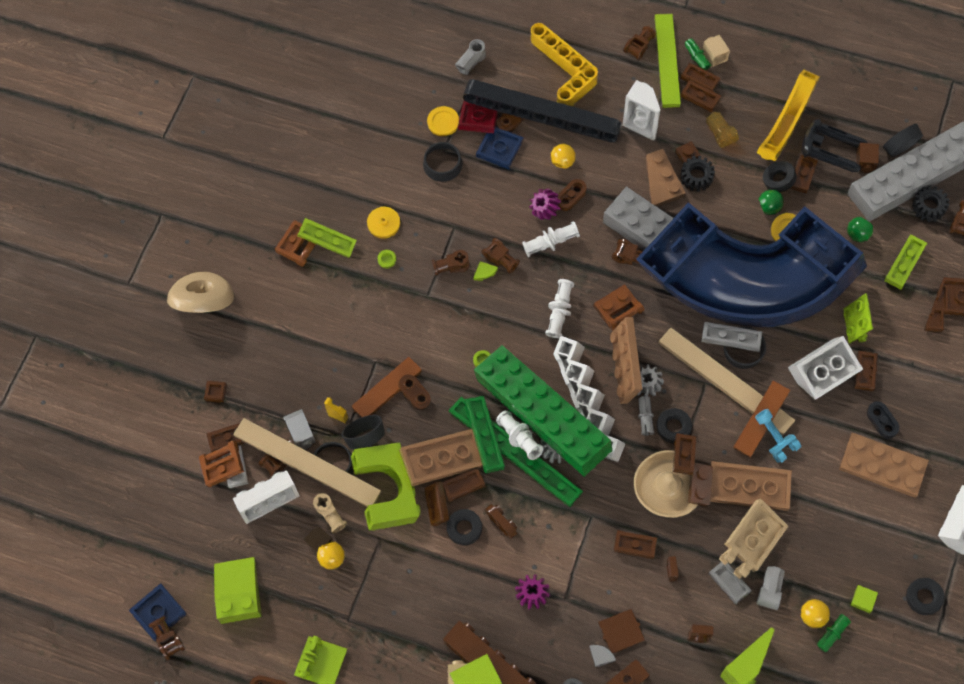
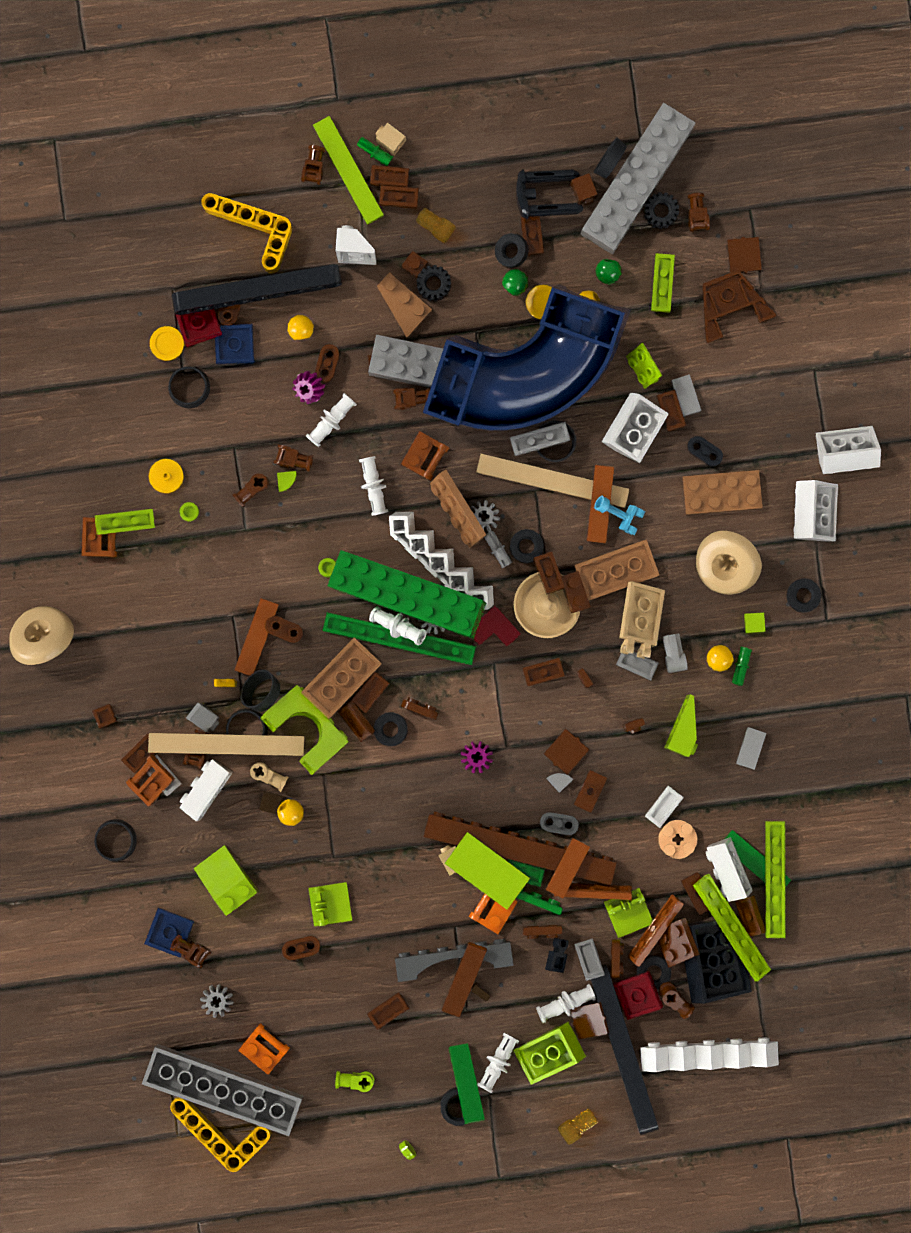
camera: 30 degrees left, 20 degrees up
(168, 517) = (132, 834): none -> black tyre
(471, 57) = (157, 263): light grey piece -> none
(484, 434) = (366, 638): green tile -> none
(609, 479) = (498, 624): none -> dark red tile
(789, 117) = (493, 185): yellow arch -> none
(863, 527) = (728, 562): none -> tan hat
(886, 365) = (686, 395): none -> light grey tile

